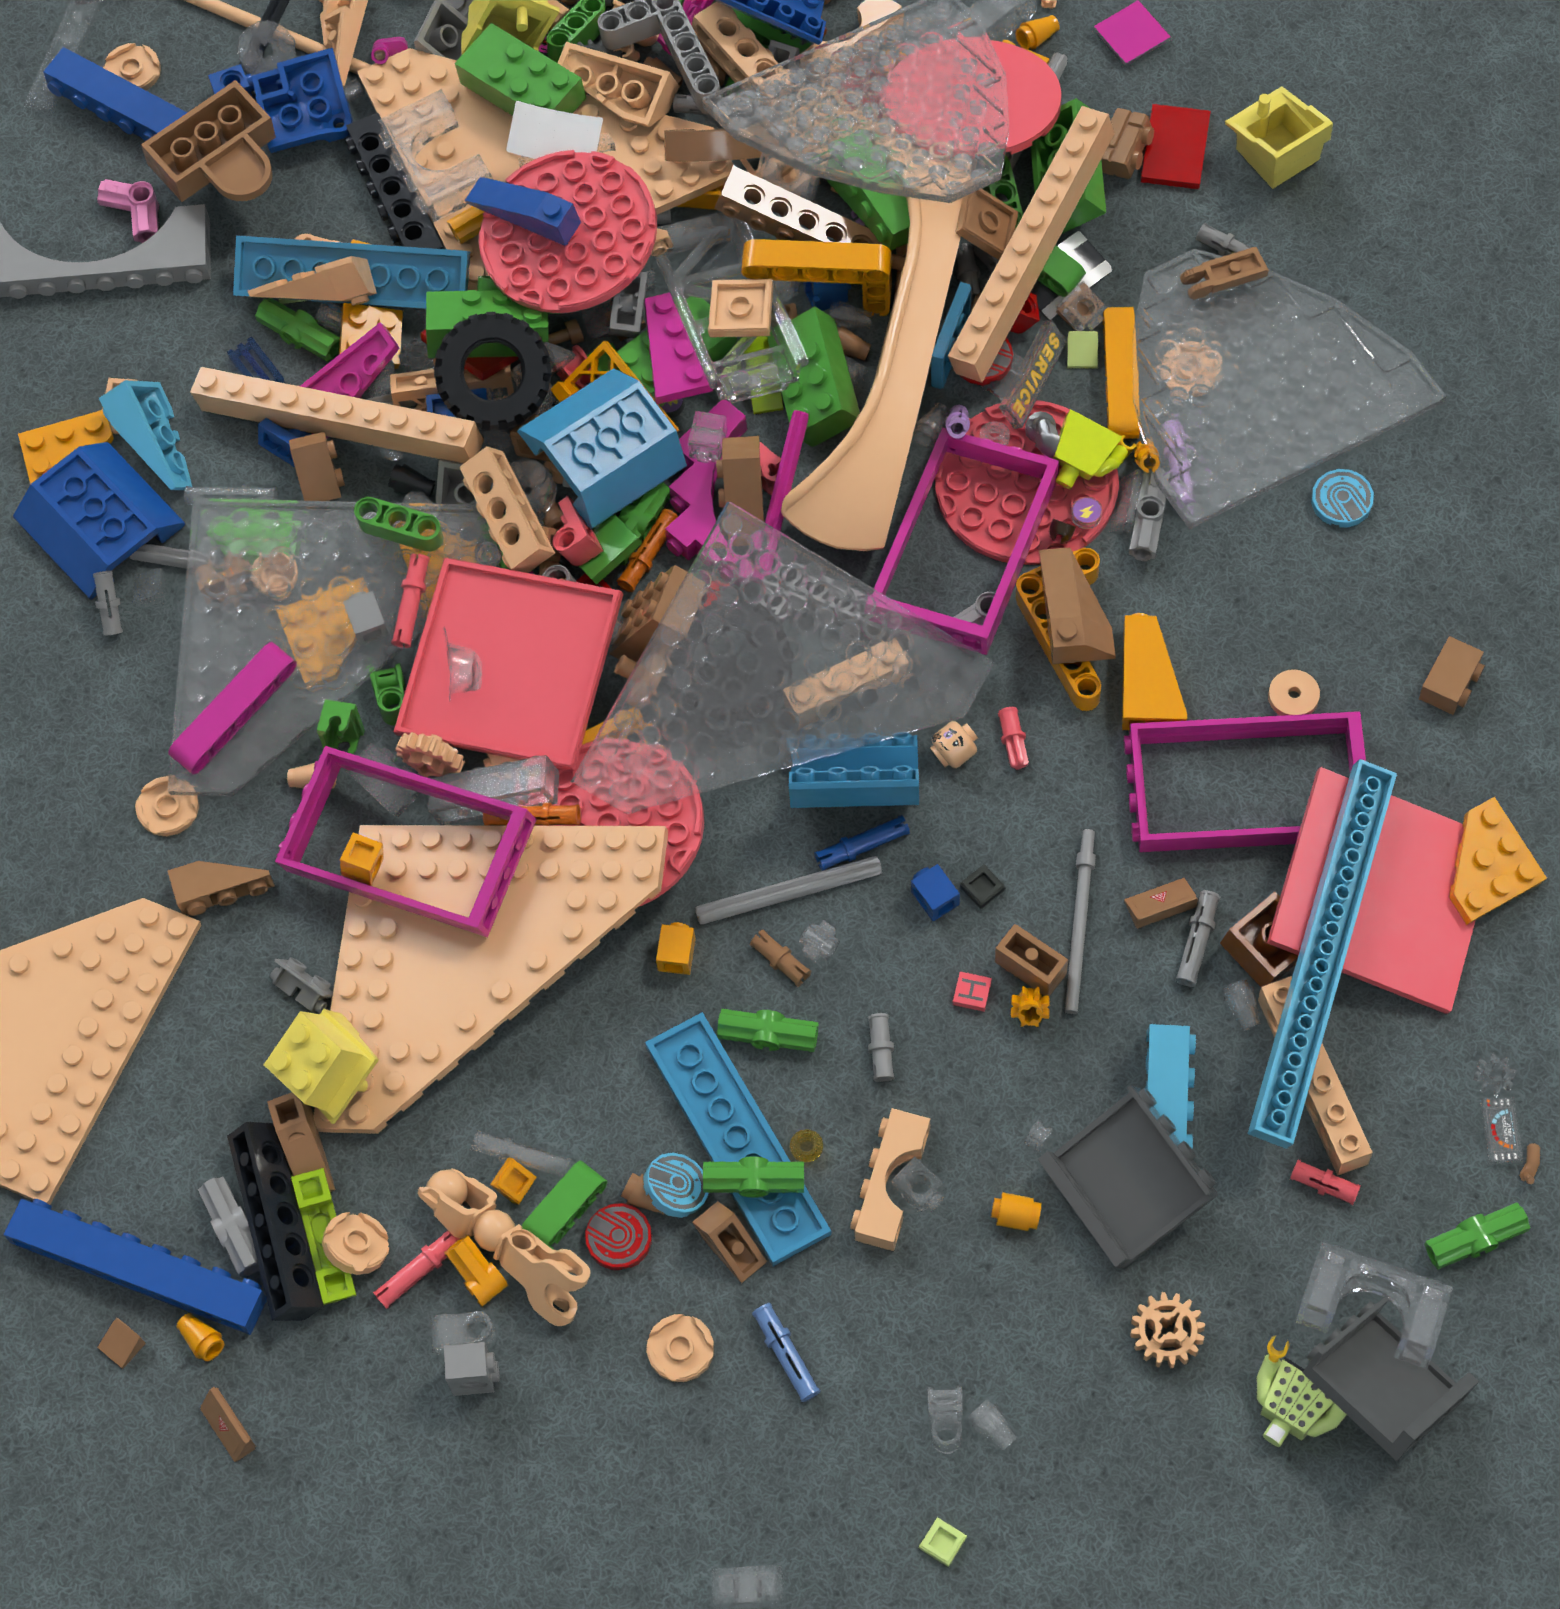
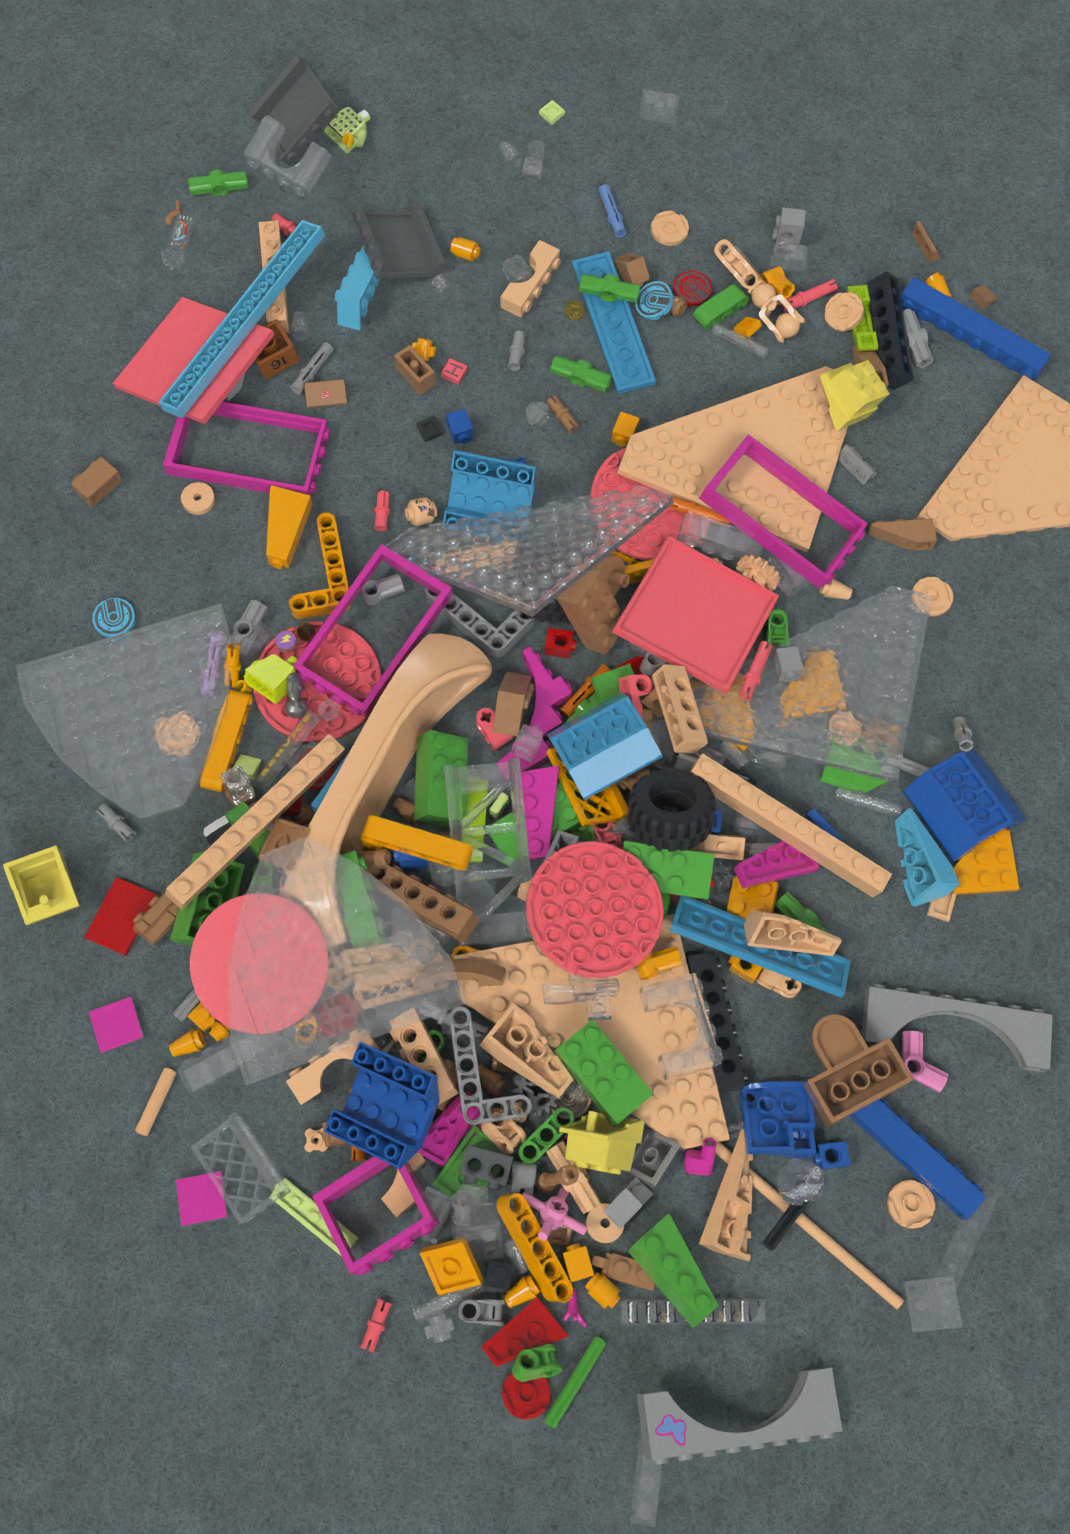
camera: 175 degrees left, 5 degrees up
(232, 708) = (884, 628): dark pink beam -> none
(244, 350) = (855, 917): clear blue tile -> none
(315, 467) = (807, 795): medium nougat brick -> none
(340, 724) = (813, 606): bright green hinge -> none
(361, 859) = (813, 502): light orange brick -> none
(408, 534) = (751, 710): bright green beam -> none
(463, 667) = (728, 606): clear piece -> none
(482, 555) = (701, 686): clear hinge -> none
(526, 208) = (625, 928): blue slope -> none
(544, 131) = (588, 995): white sticker -> none
(740, 308) = (481, 824): light nougat tile -> none
(787, 467) = (488, 690): dark pink axle -> none
(788, 890) = (551, 452): light grey axle -> none
(962, 422) = (352, 706): lavender pin -> none
(1074, 616) = (318, 560): medium nougat wedge -> none
(1085, 864) = (363, 426): light grey bar -> none
(1178, 1339) = (401, 175): light nougat gear -> none
(1225, 272) = (126, 785): medium nougat hinge -> none
(1491, 863) = (122, 365): light orange plate -> none

